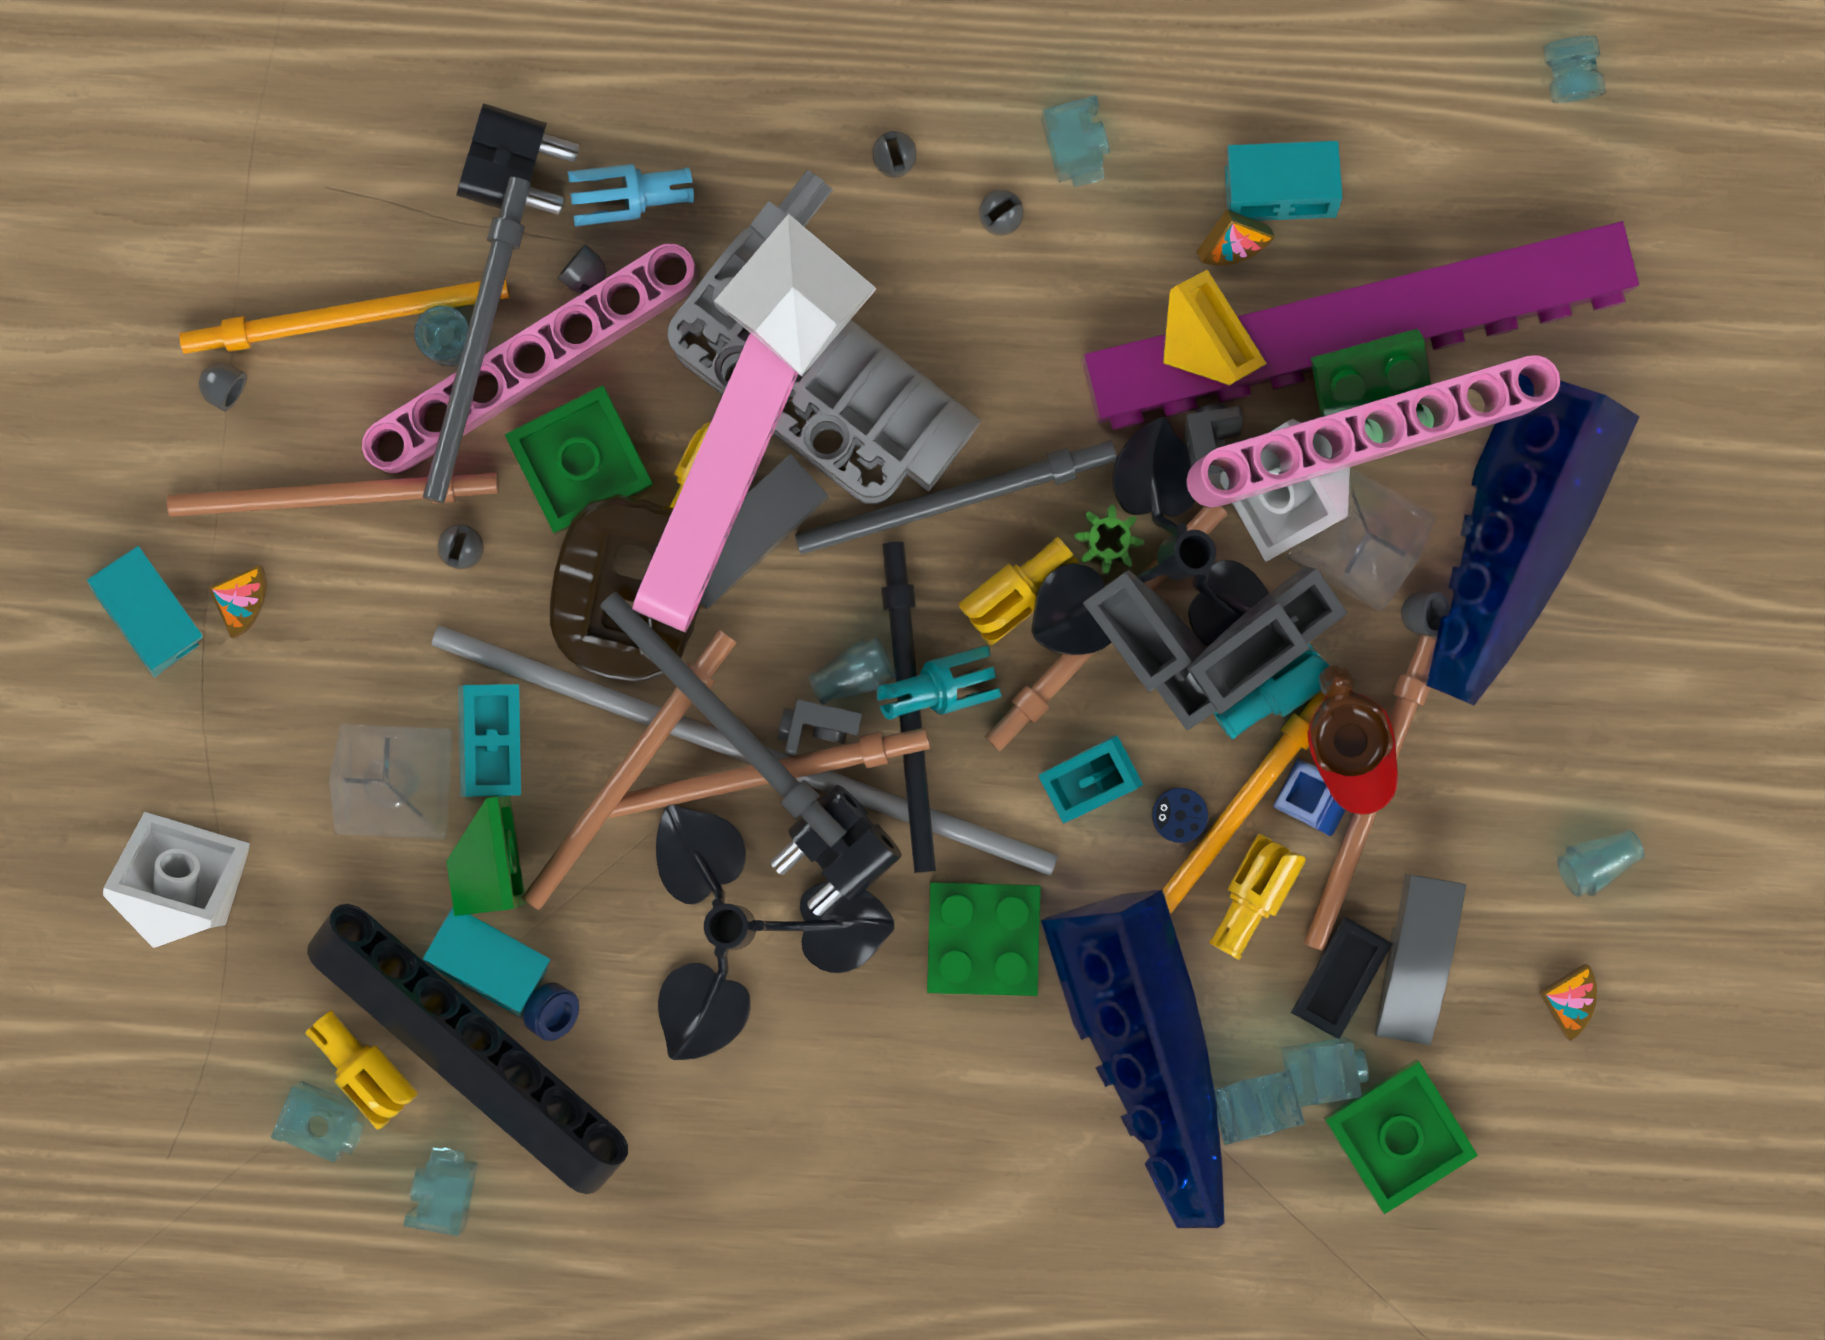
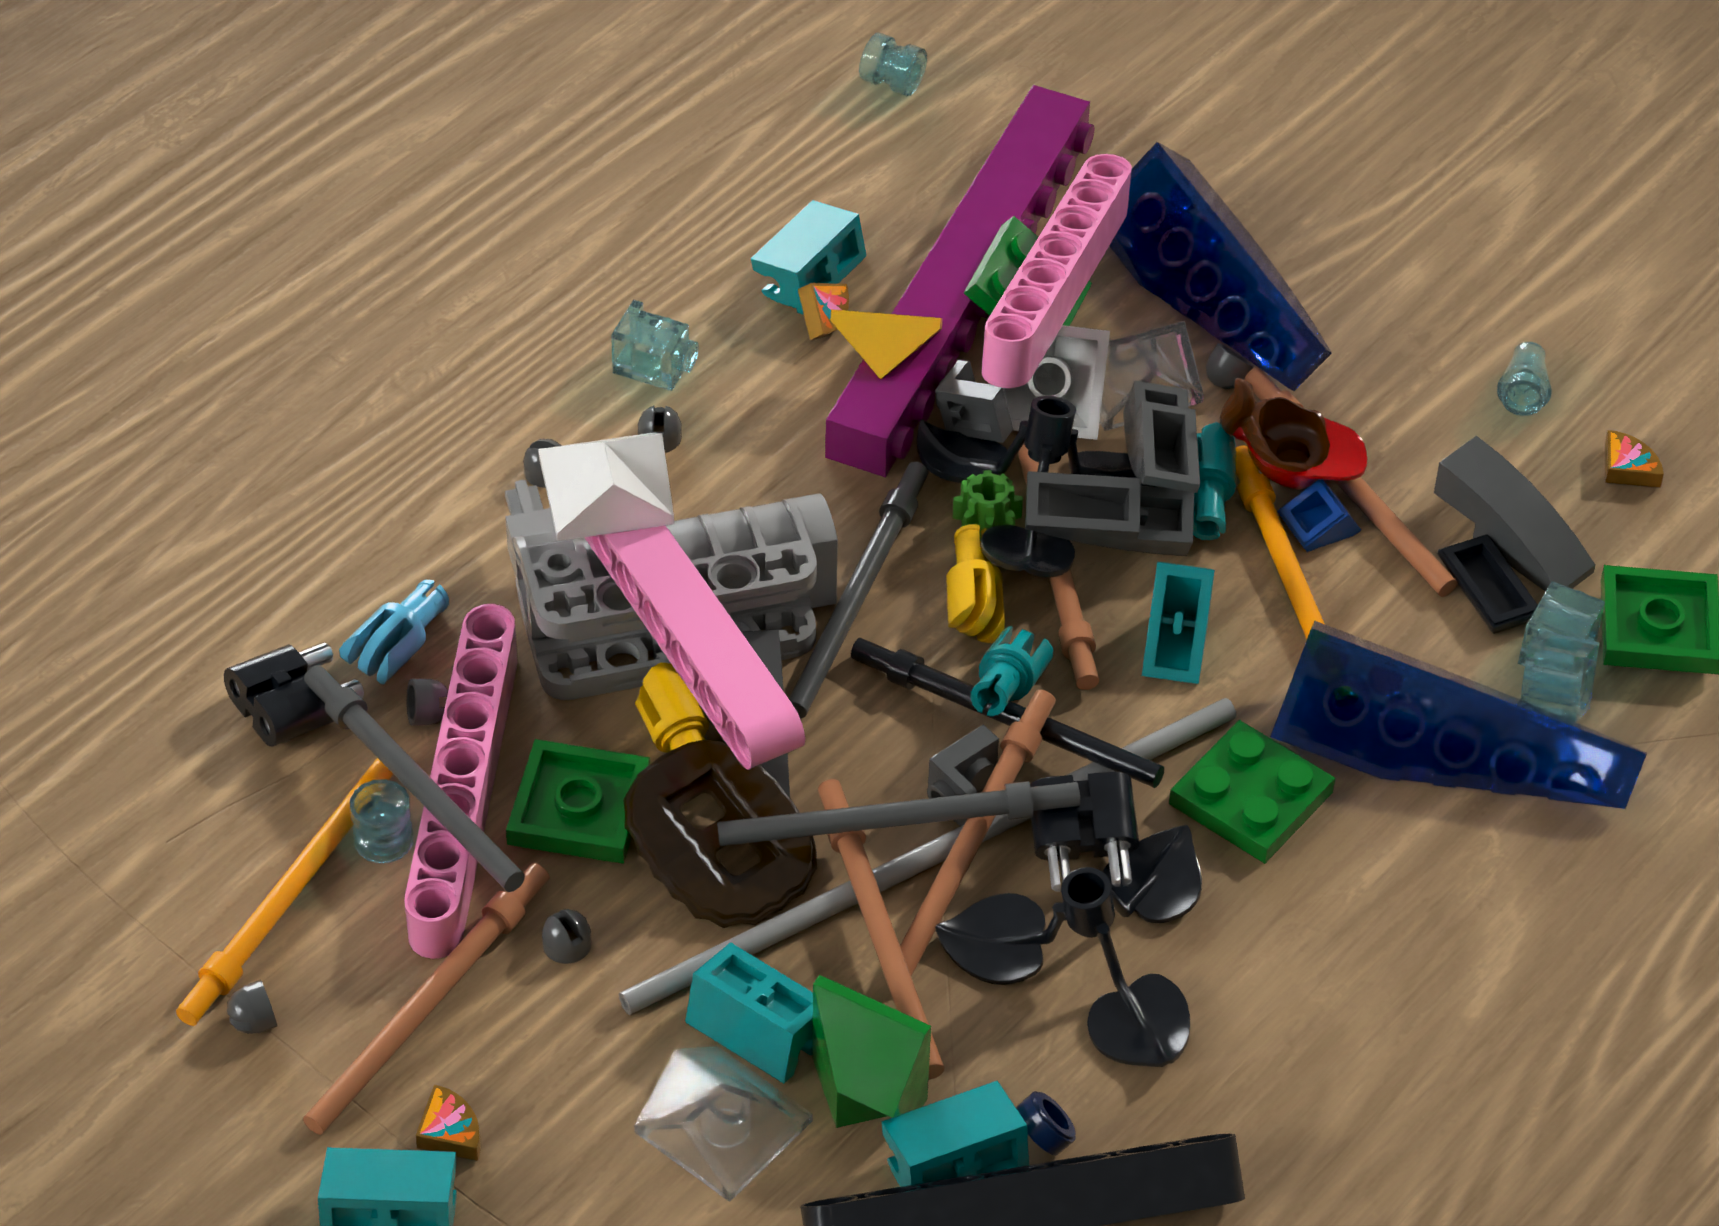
camera: 50 degrees left, 40 degrees down
(853, 672) = (941, 721): clear light blue cone -> none
(1179, 815) = (1259, 604): dark blue tile -> none
(1256, 892) = (1372, 590): yellow arm -> none

